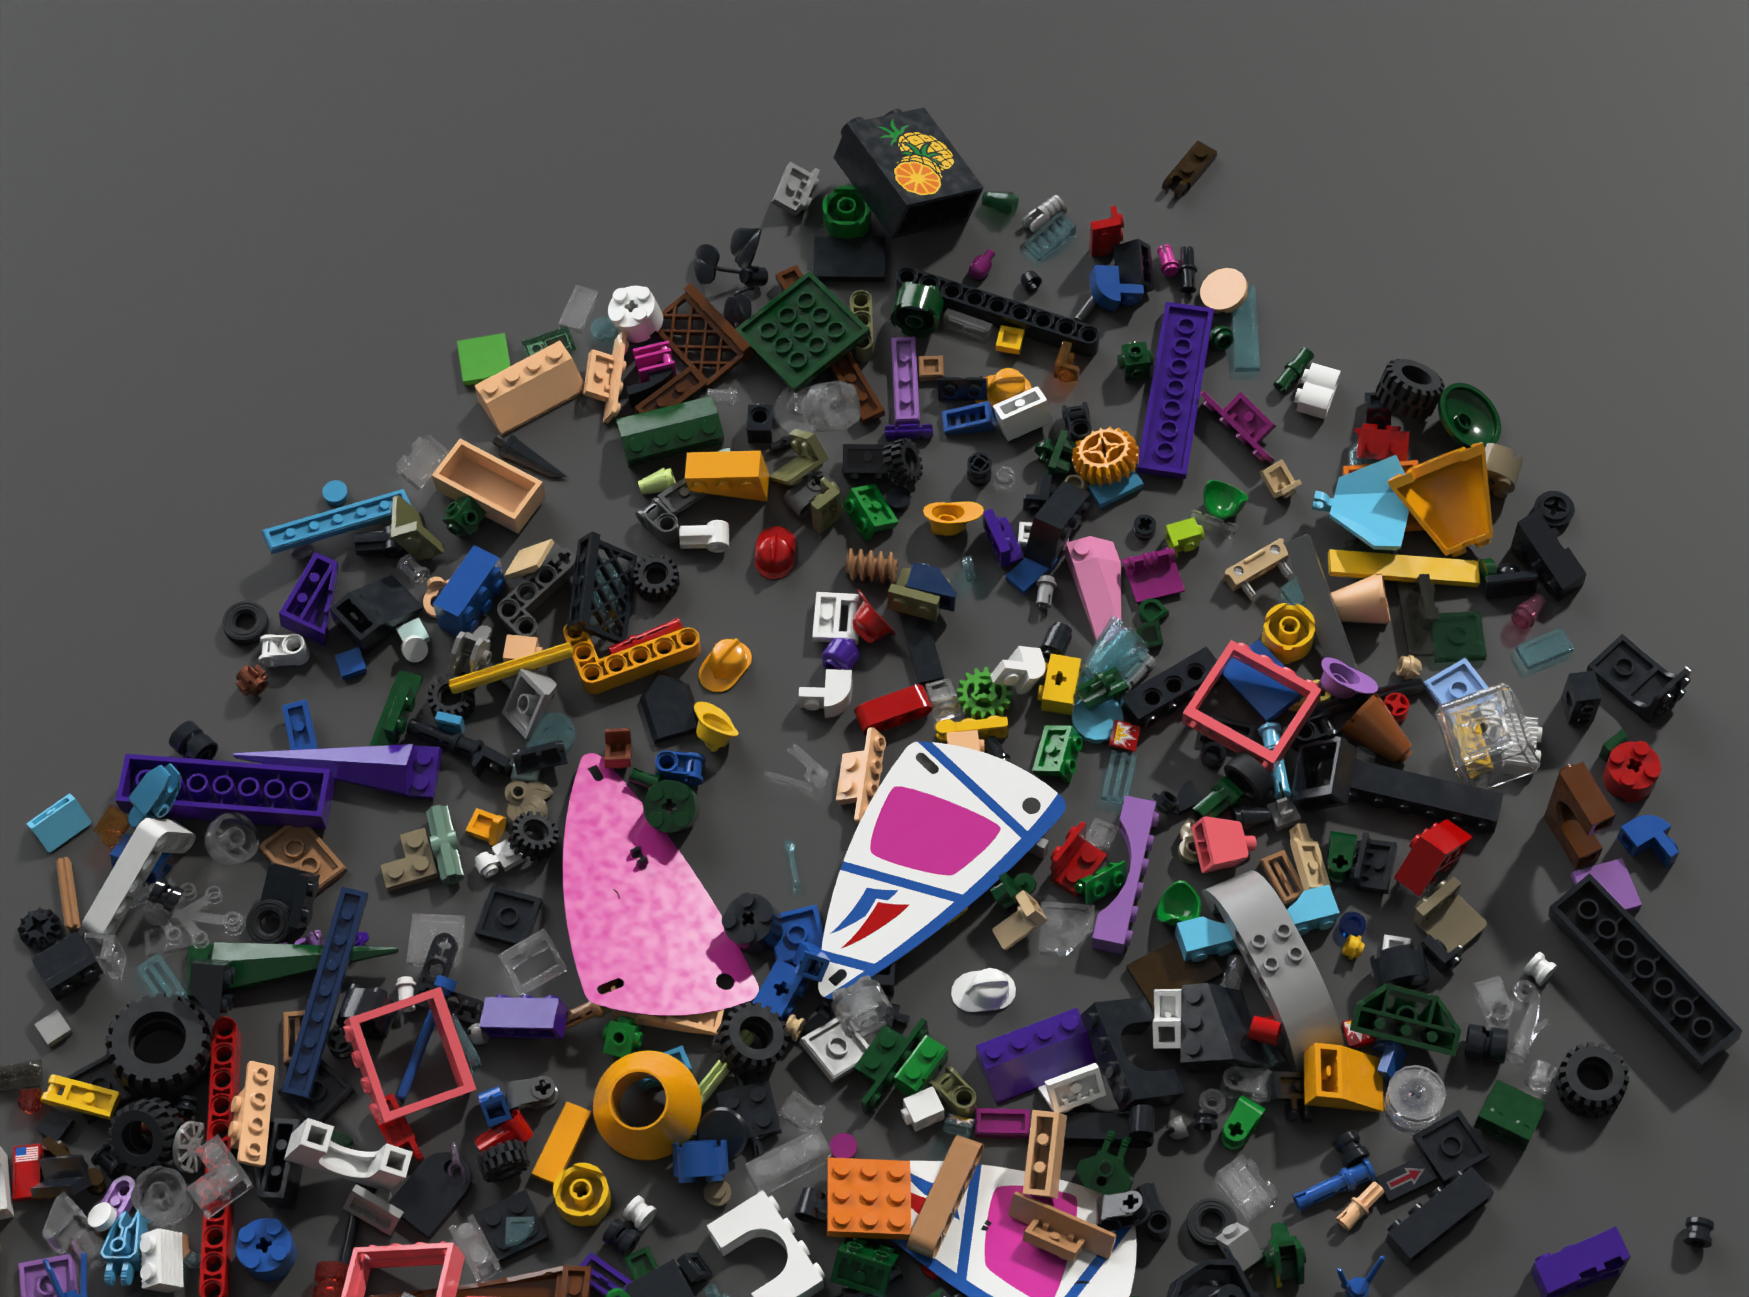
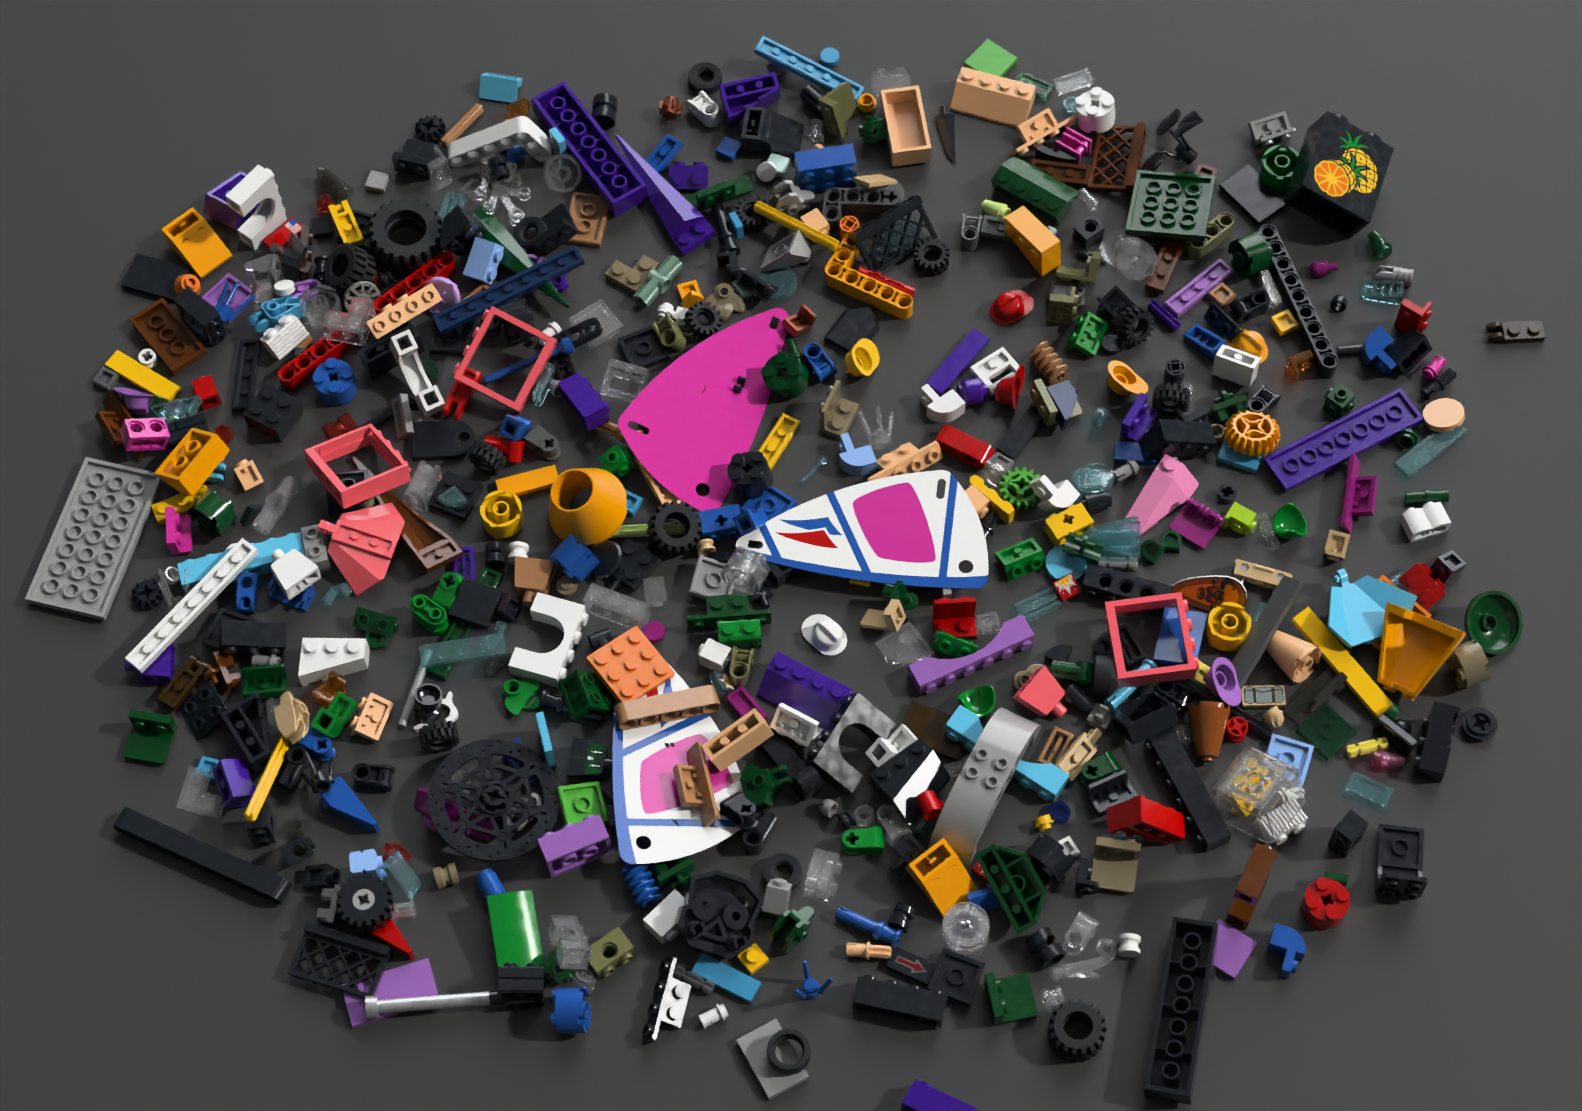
camera: 50 degrees right, 0 degrees up
(154, 794) = (547, 110): dark azure hinge -> none
(194, 816) = (557, 142): none -> medium azure tile
(264, 991) = (483, 260): none -> light blue brick
(269, 1053) = (447, 290): none -> lavender tile
(349, 723) = (688, 177): none -> dark purple bracket
(423, 495) = (866, 103): none -> light orange plate
(455, 1160) = (459, 436): clear purple hand -> none
(511, 877) = (667, 330): none -> olive piece
(553, 631) = (847, 225): none -> orange wheel
(681, 1220) = (533, 576): none -> medium nougat torso
(711, 536) = (986, 265): white piece -> none
(724, 665) = (910, 337): light orange piece -> none
(728, 867) = (779, 438): none -> yellow tile
(755, 792) = (836, 412): none -> dark tan bracket
(792, 643) = (958, 361): none -> dark purple tile
(820, 818) = (856, 461): none -> light blue brick
(966, 355) = (1247, 306): none -> black piece
(1008, 493) = (1170, 397): none -> black tyre
(1030, 624) = (1093, 478): none -> clear light blue tile
(1166, 802) = (1042, 643): black plate -> none
(1241, 618) = (1210, 591): none -> shield
(1380, 658) = (1263, 696): none -> tile
(1409, 389) = (1476, 570): black tyre -> none
(1501, 616) = (1366, 747): none -> light yellow axle

